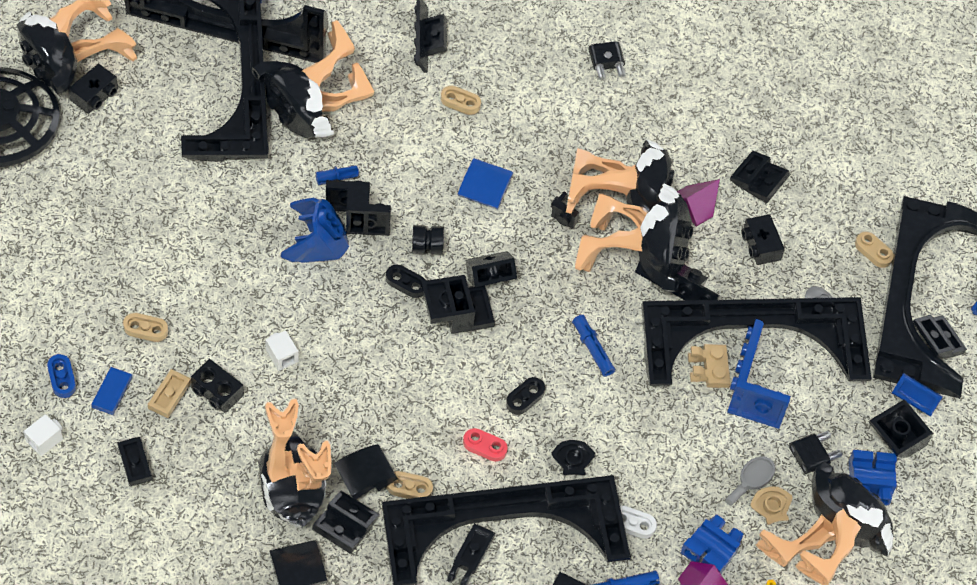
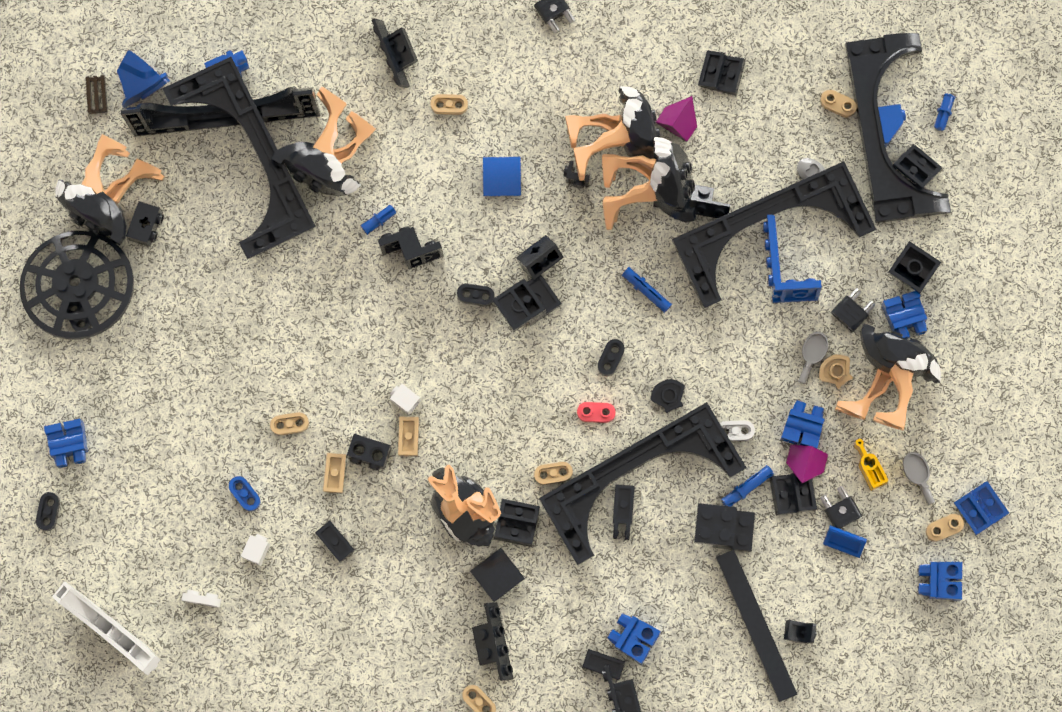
camera: 10 degrees left, 20 degrees up
(111, 391) = (288, 488): blue tile -> none
(267, 387) = (408, 436): none -> tan plate
(328, 233) = (397, 279): blue piece -> none
(365, 470) = (515, 475): black slope -> none
(427, 239) = (478, 251): black wheel -> none
(716, 365) = (749, 266): tan plate -> none
(763, 239) = (745, 125): black brick -> none
(917, 394) = (916, 226): blue tile -> none
(926, 284) = (891, 121): none -> blue slope

